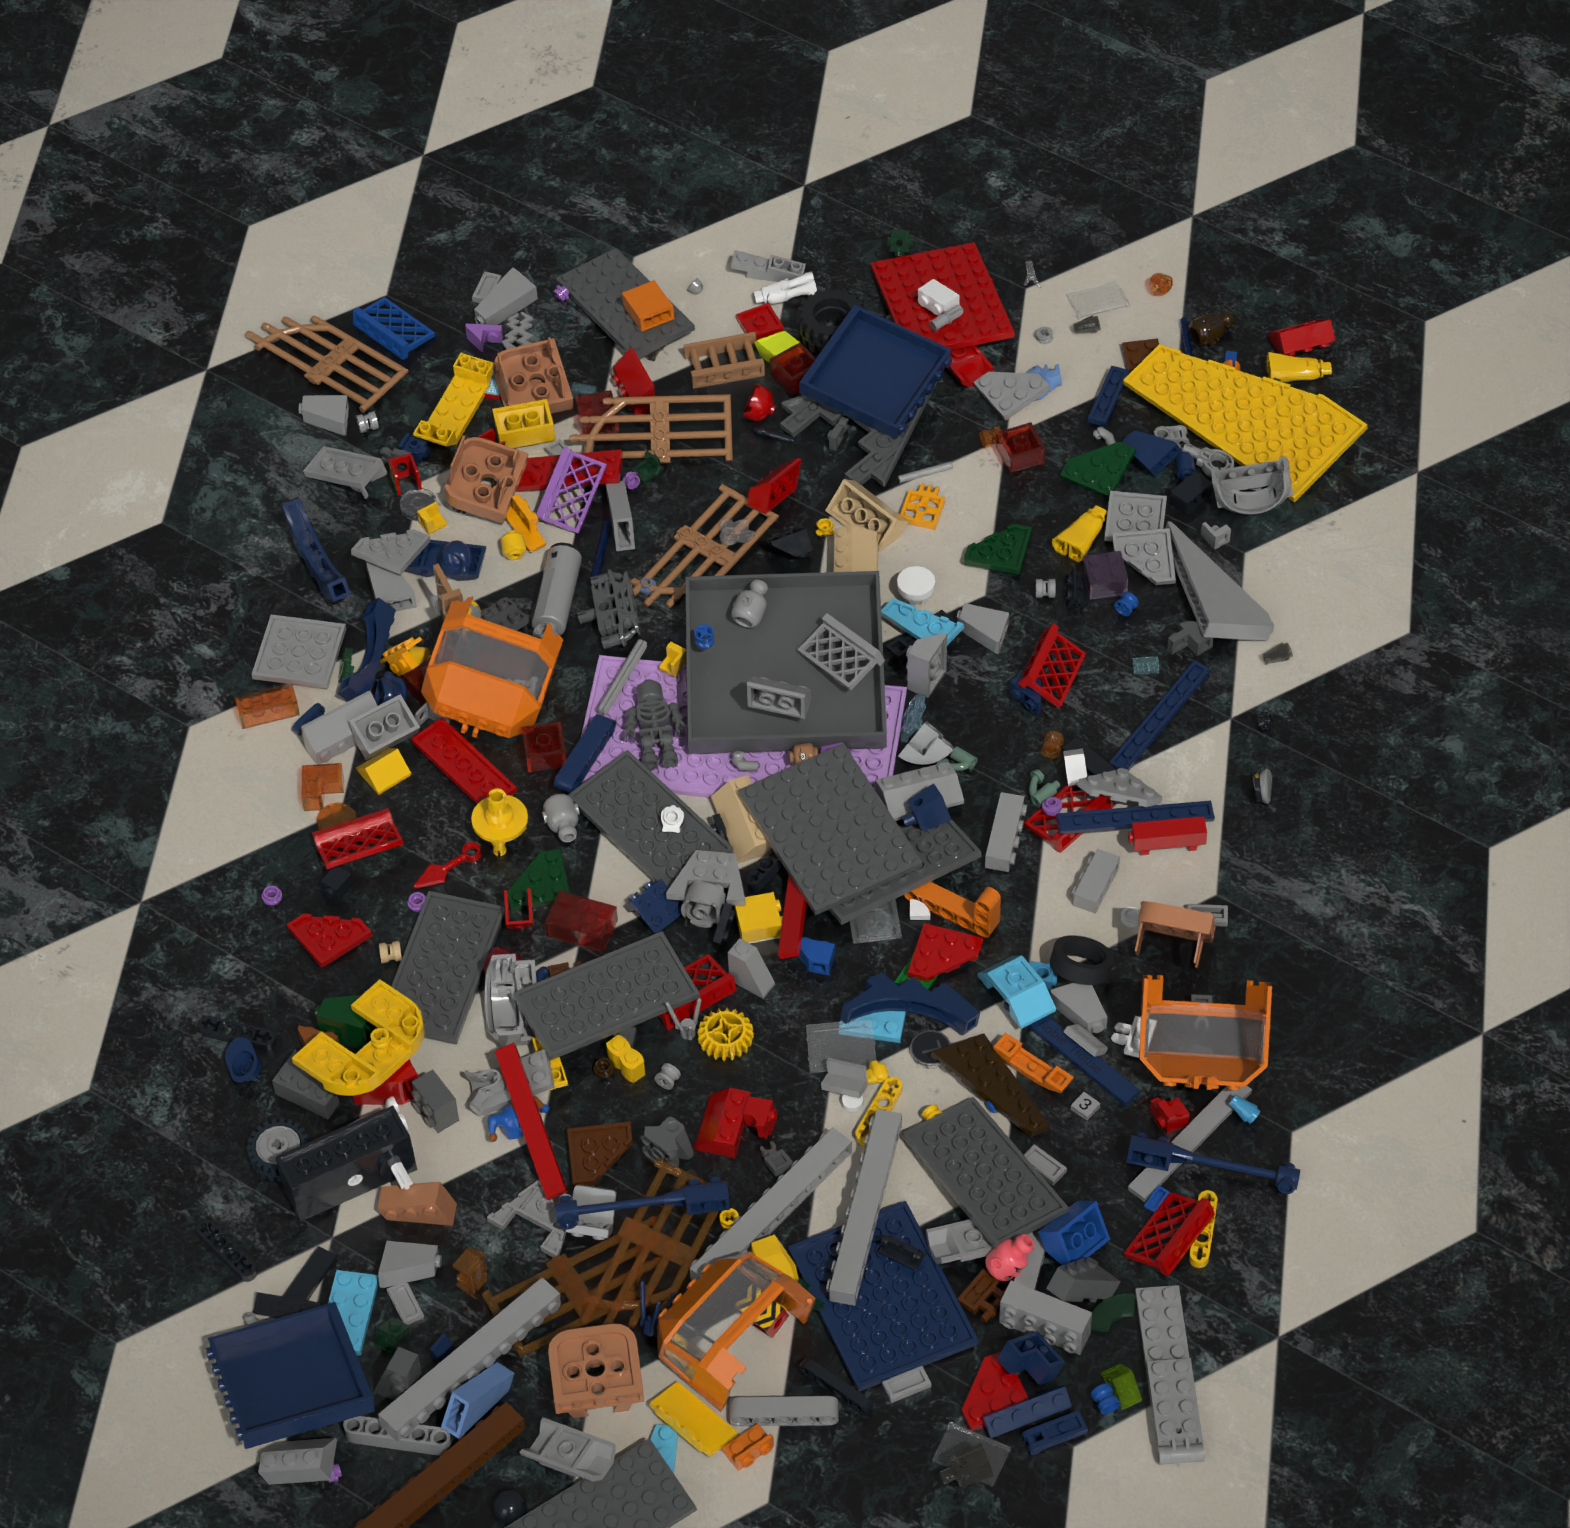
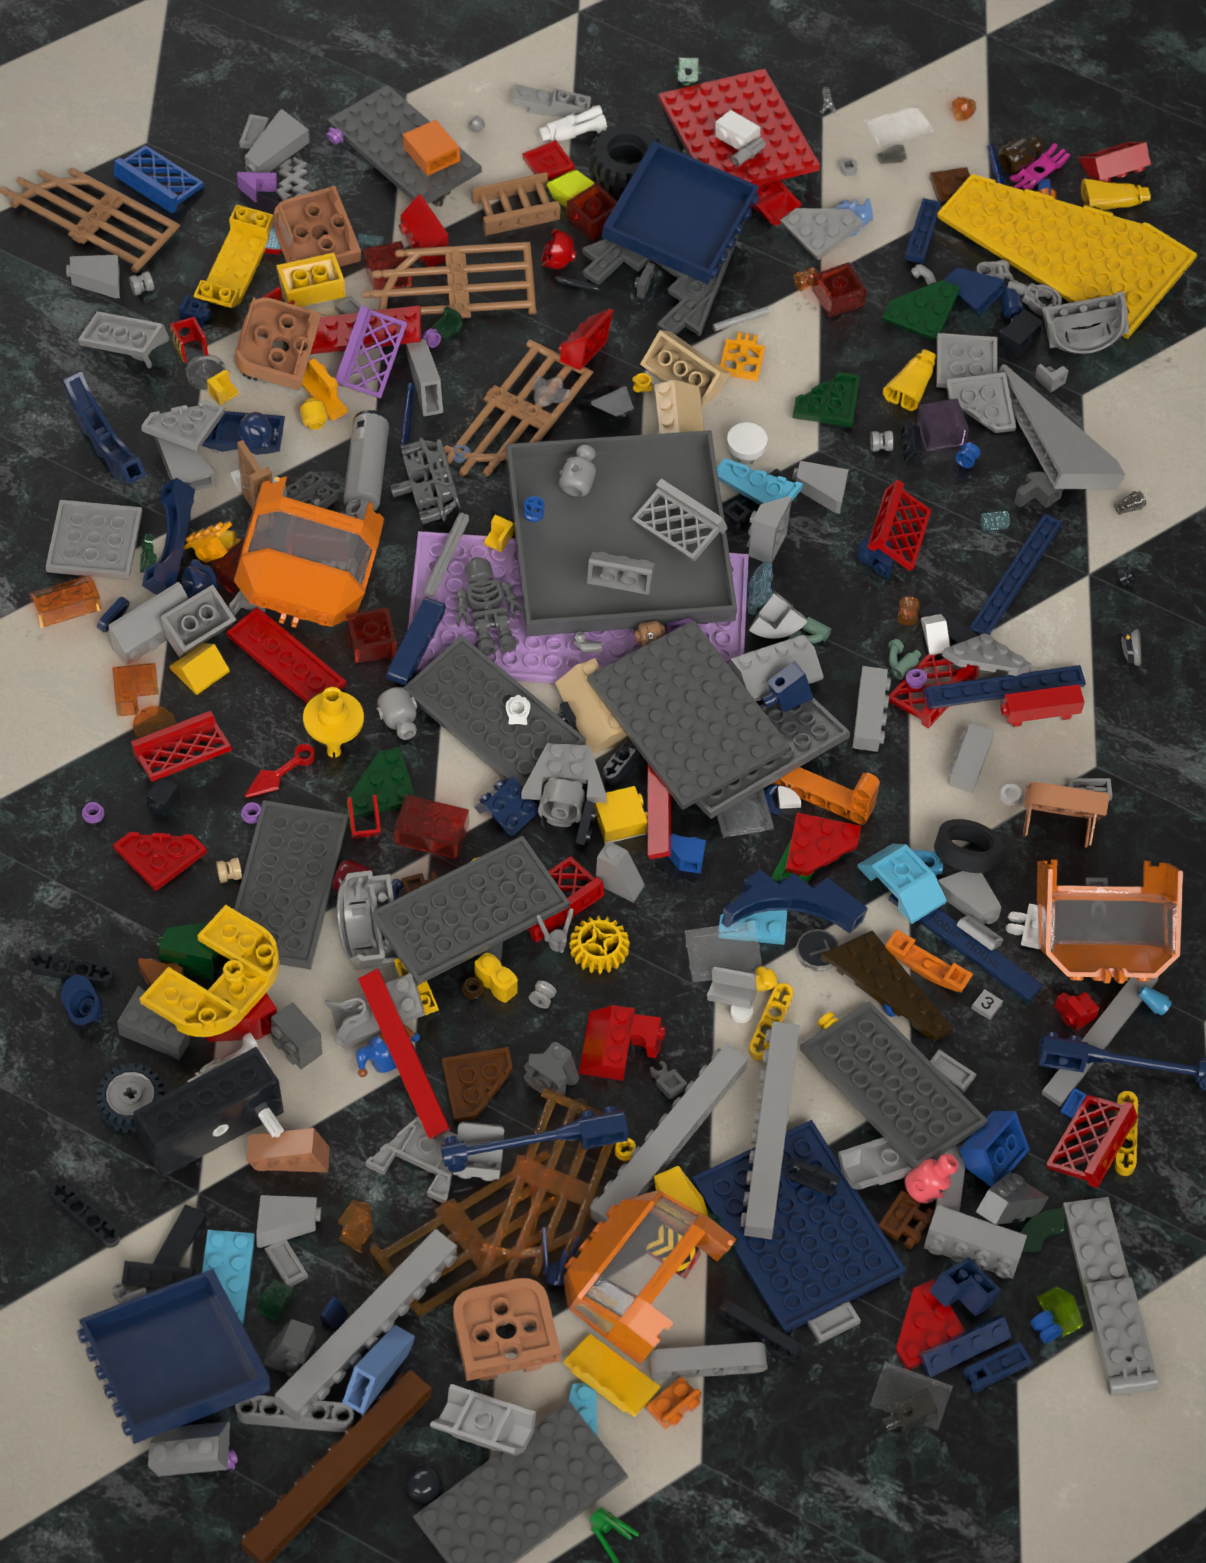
camera: 10 degrees left, 5 degrees up
(388, 453) = (168, 318): dark grey plate -> none
(901, 914) = (768, 794): none -> dark blue piece
(1234, 335) = (1049, 165): none -> dark pink piece

